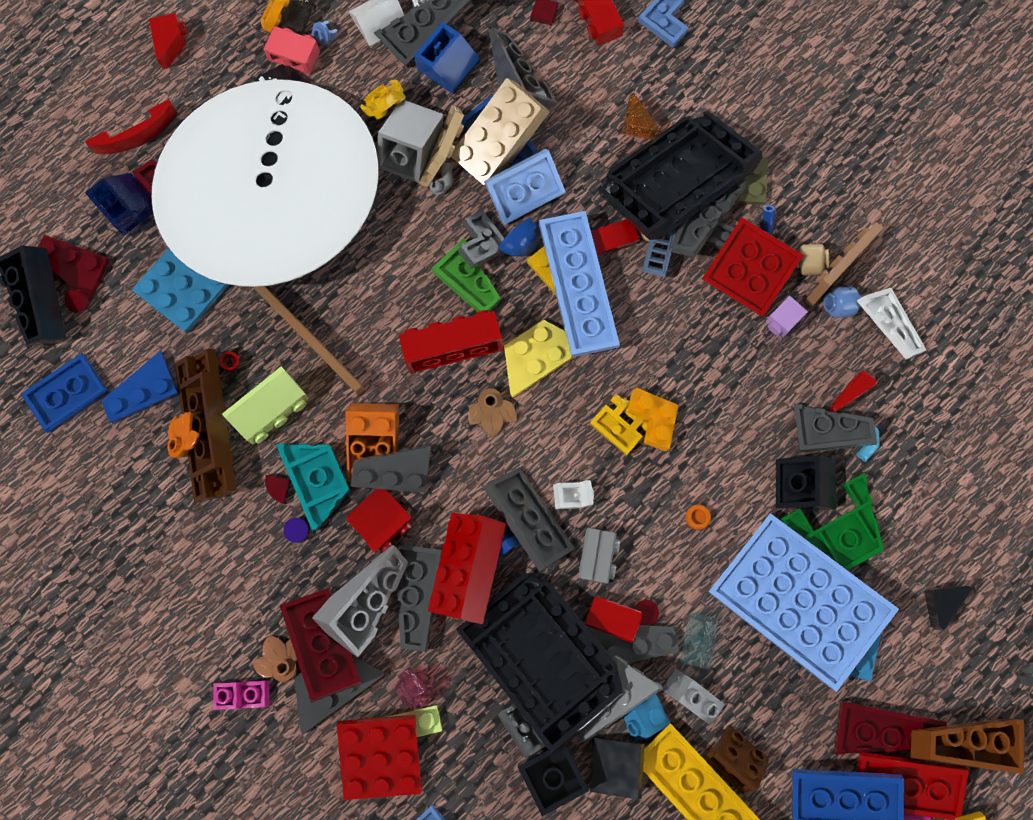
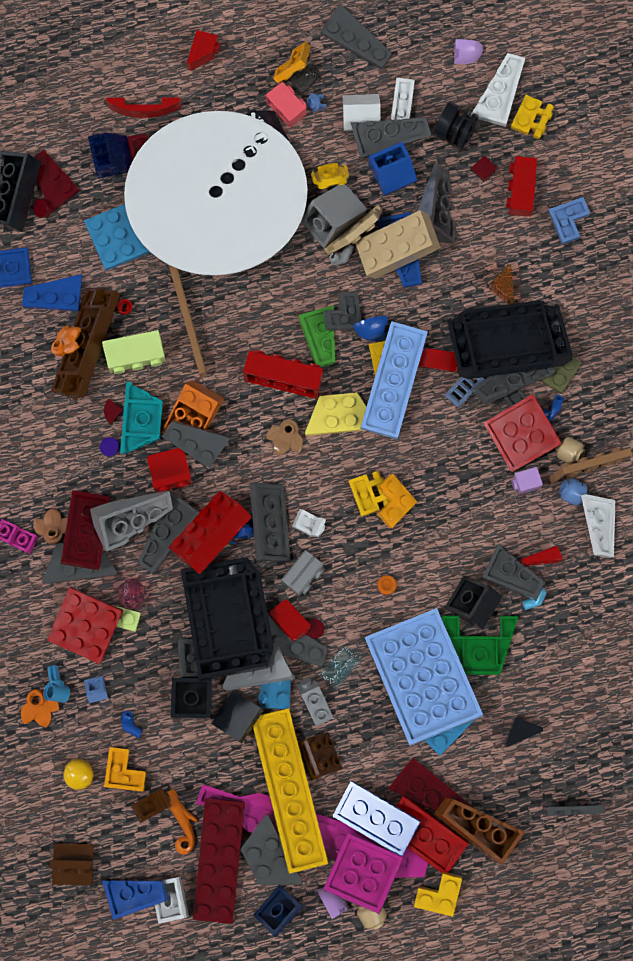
camera: 25 degrees right, 0 degrees up
(525, 186) = (395, 292): light blue plate -> none

